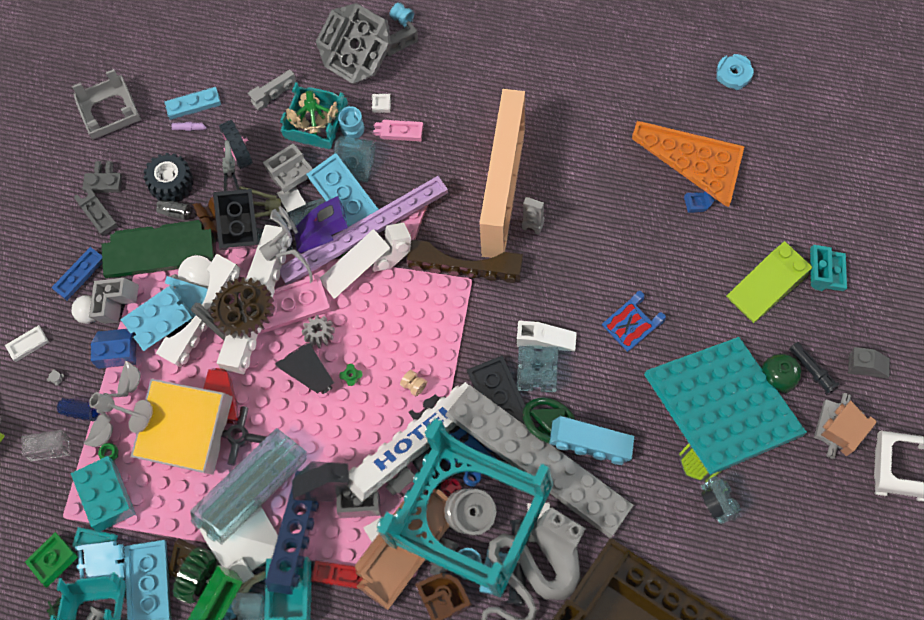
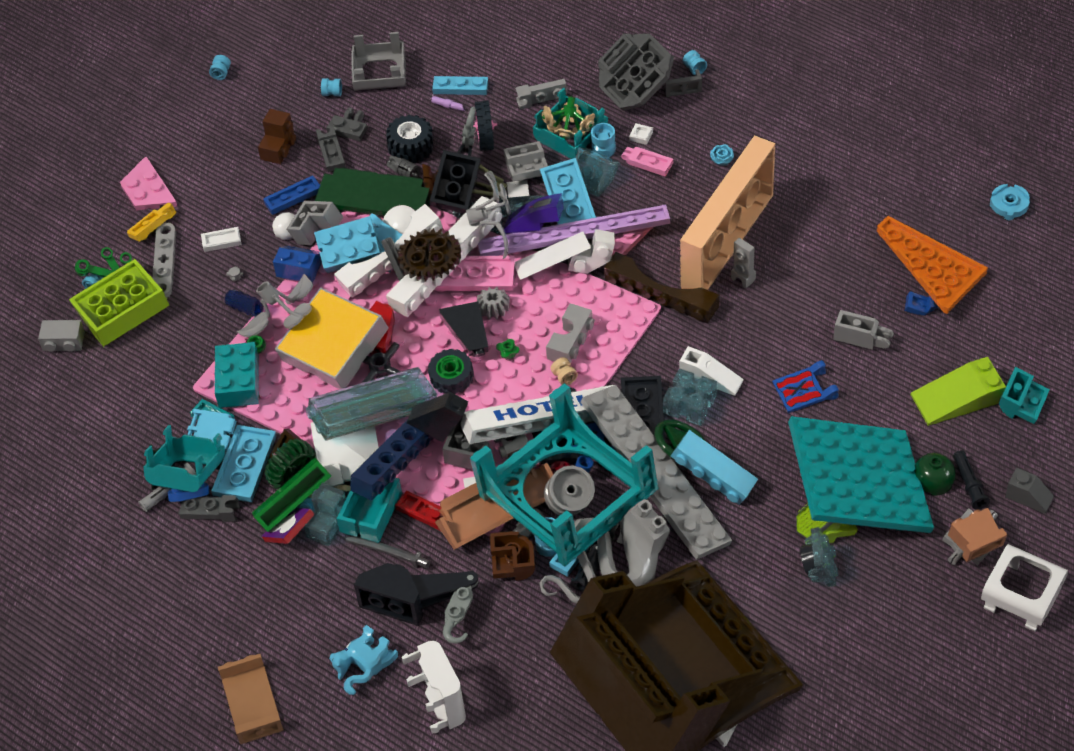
camera: 20 degrees right, 15 degrees down
(39, 216) = (278, 136): none -> reddish brown brick
(45, 445) = (202, 323): clear brick -> none
(51, 559) = (167, 413): green plate -> none
(70, 144) = (331, 87): none -> medium azure wheel
(299, 410) = (447, 361): none -> black wheel
(403, 357) = (576, 321): none -> light grey arch
(464, 98) = (722, 154): none -> medium azure plate
(662, 249) = (861, 331): none -> light grey hinge

